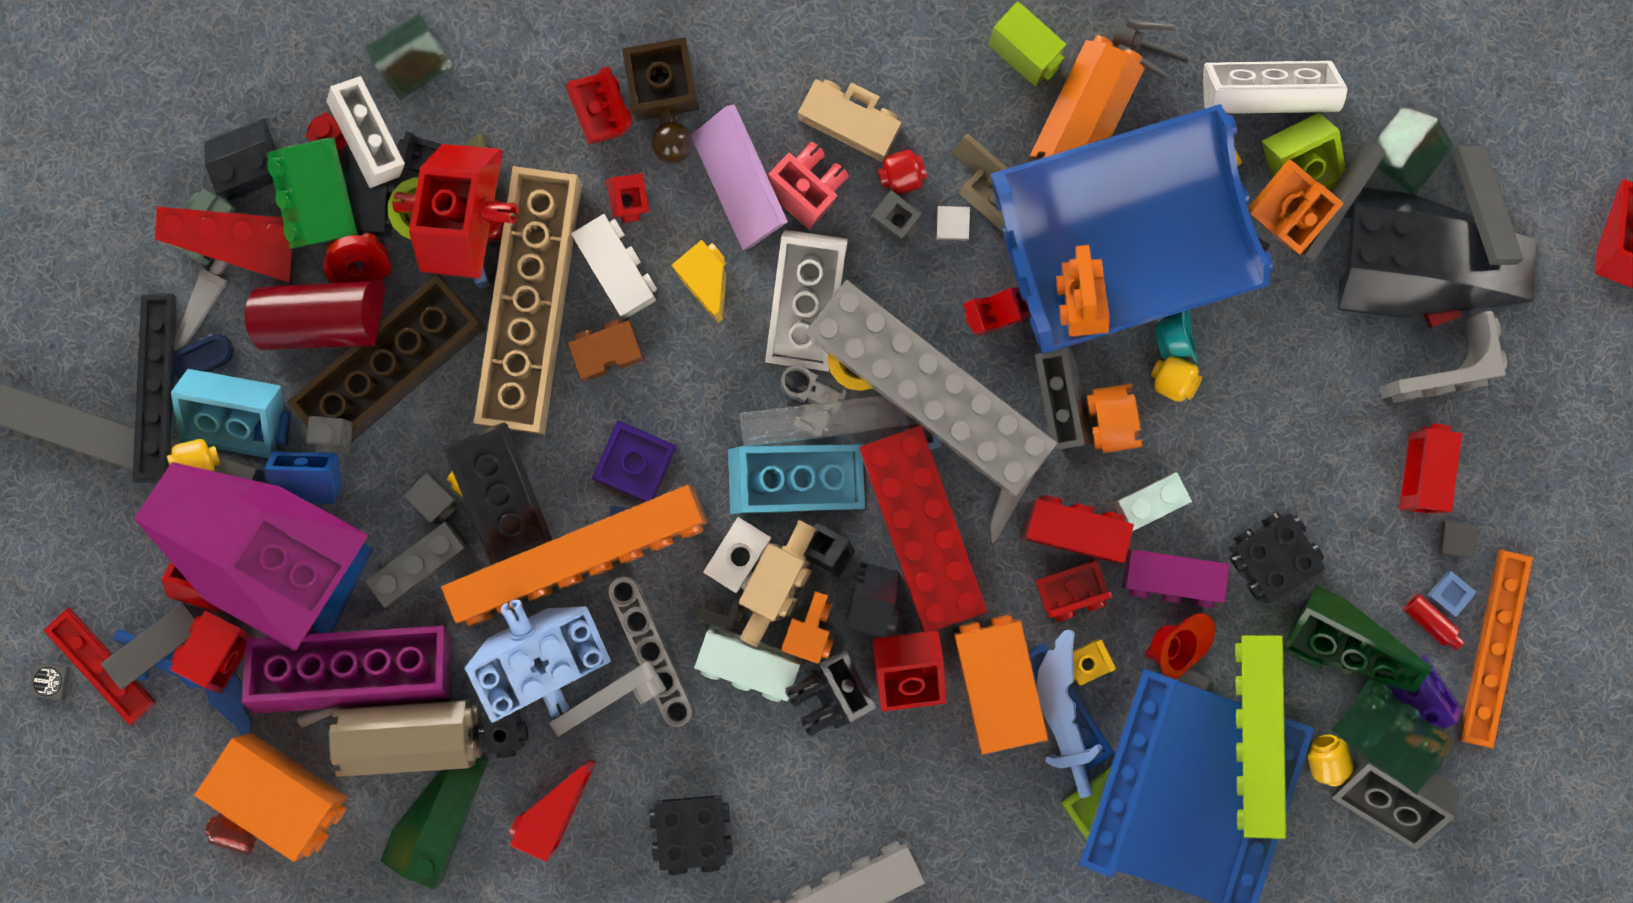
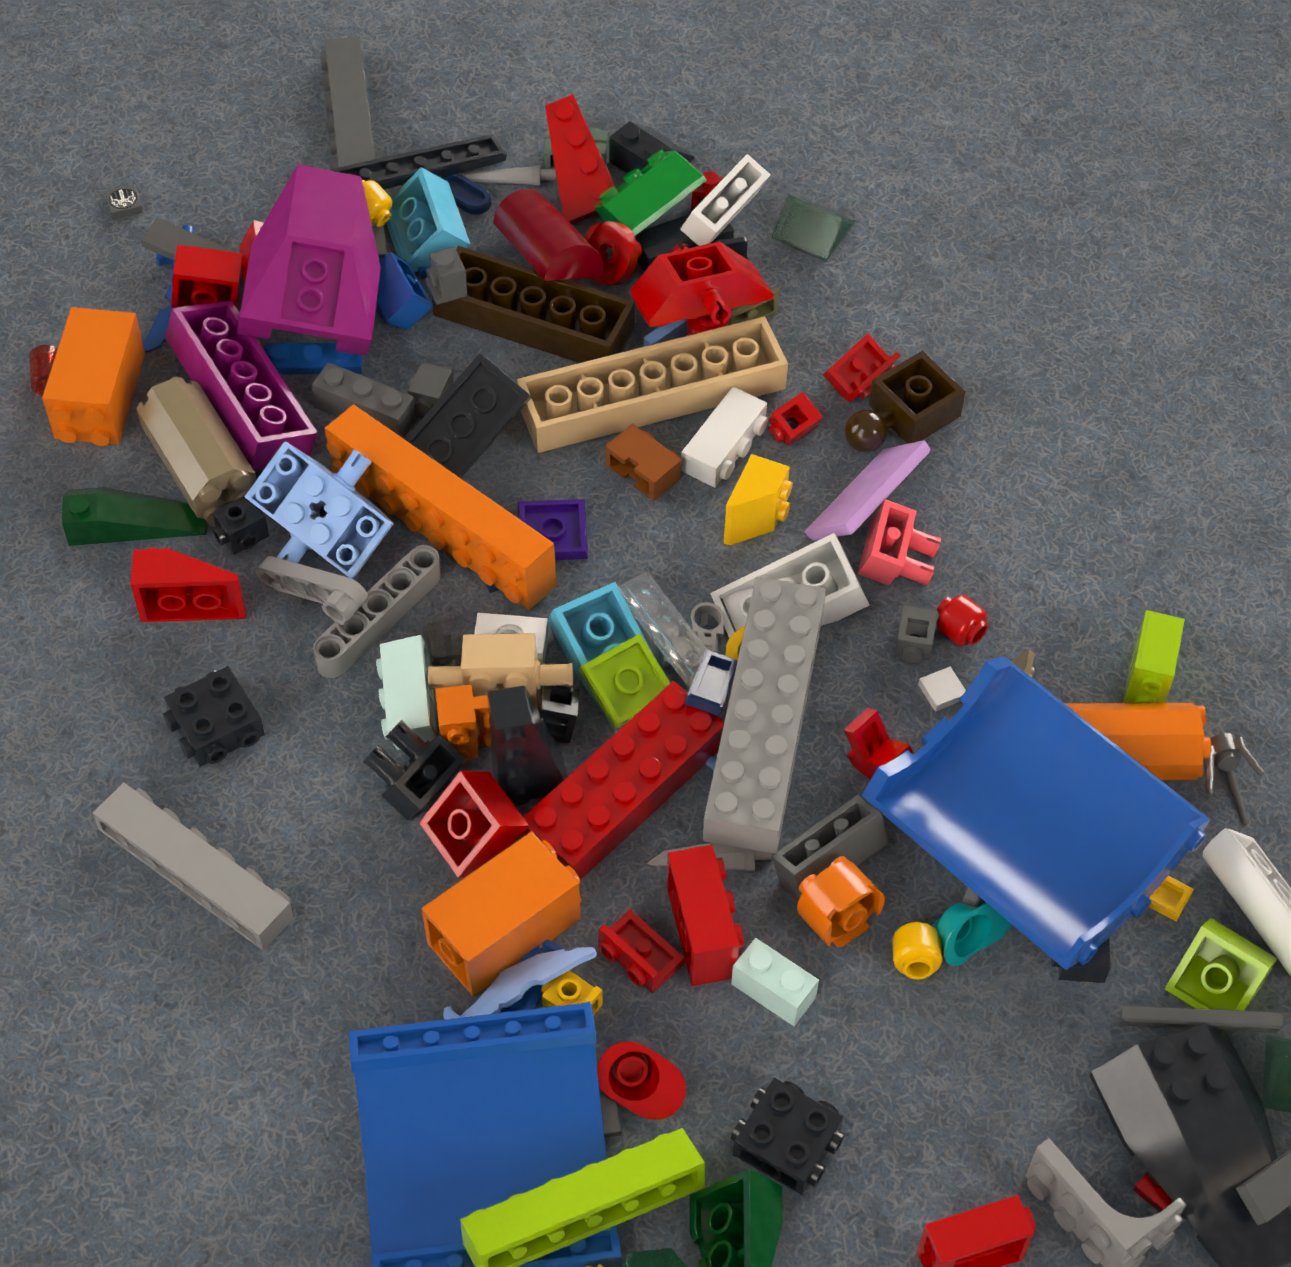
camera: 55 degrees right, 30 degrees down
(87, 654) = (168, 206): red tile -> none
(829, 479) = (624, 680): none -> lime tile
(848, 122) = (979, 547): tan piece -> none
(879, 417) = (712, 682): none -> tile
(1084, 295) = (944, 795): orange brick -> none
(1175, 578) = (708, 1043): magenta brick -> none
(1294, 207) = (1160, 986): orange brick -> none

